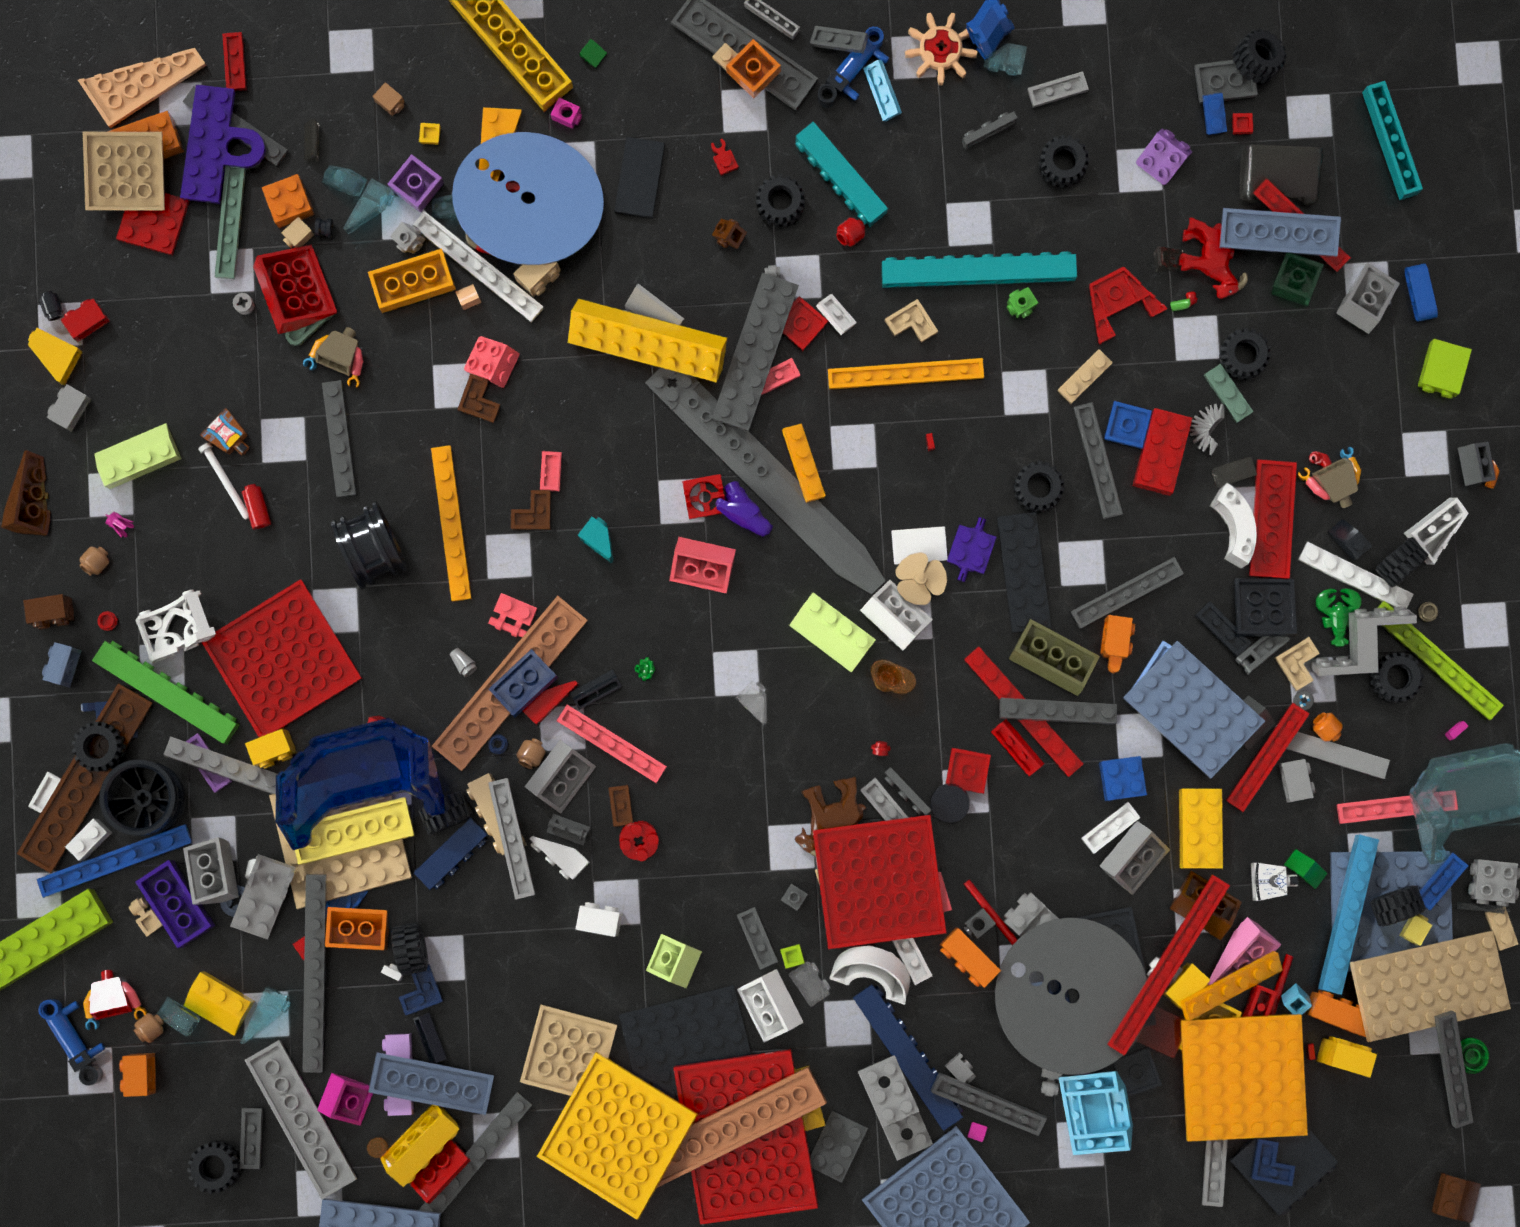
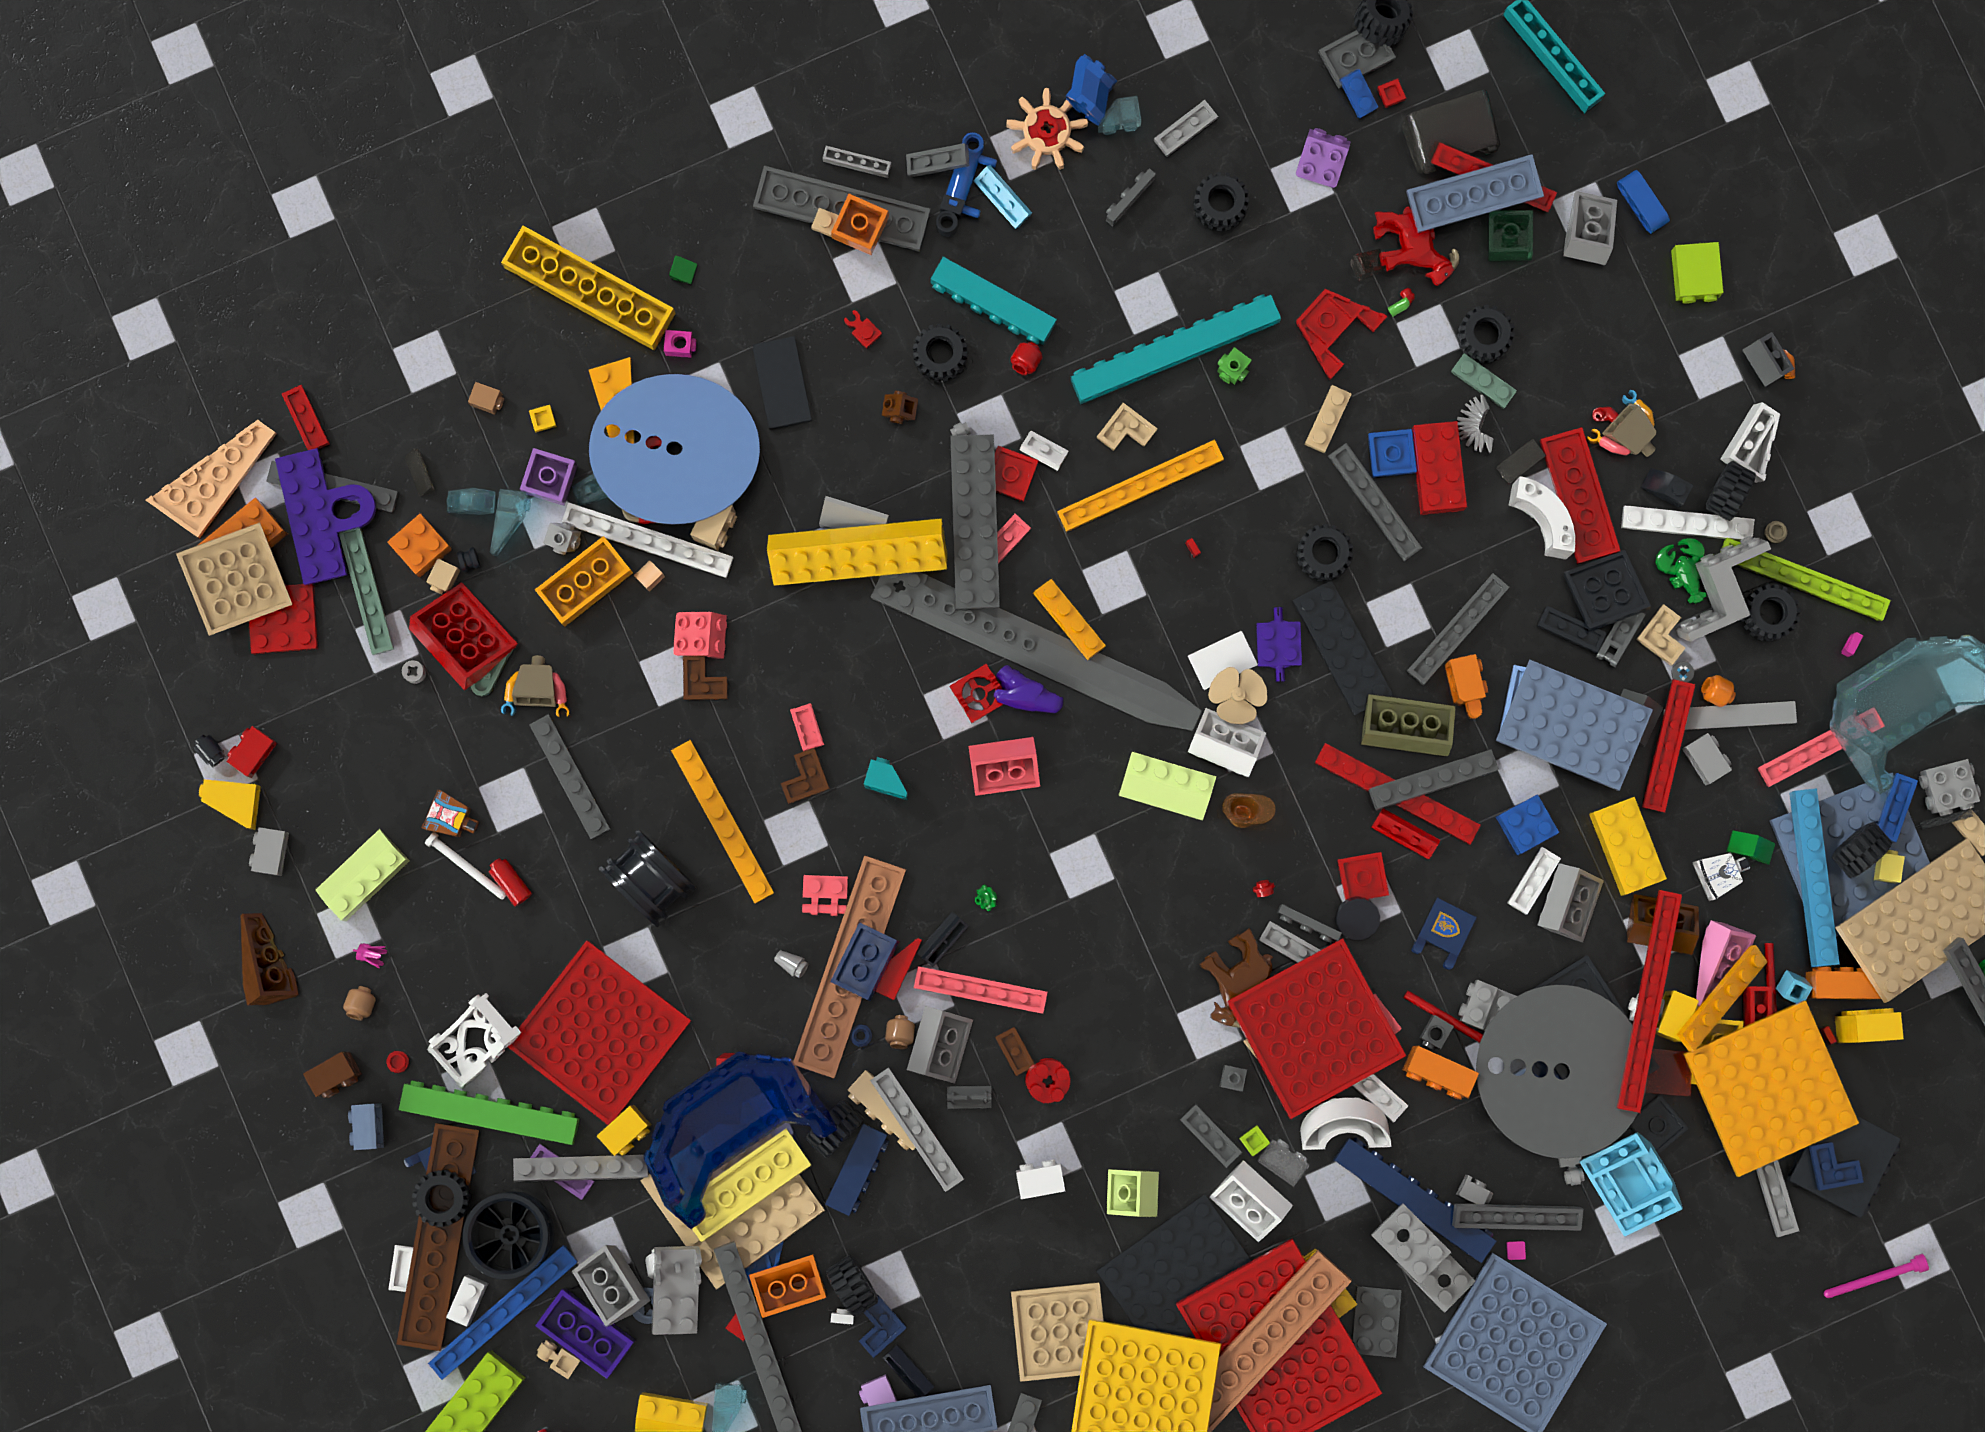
camera: 25 degrees left, 0 degrees up
(567, 858) = (978, 1127): white slope -> none
(755, 701) = (1114, 888): clear slope -> none
(1021, 840) = (1445, 928): none -> dark blue flag

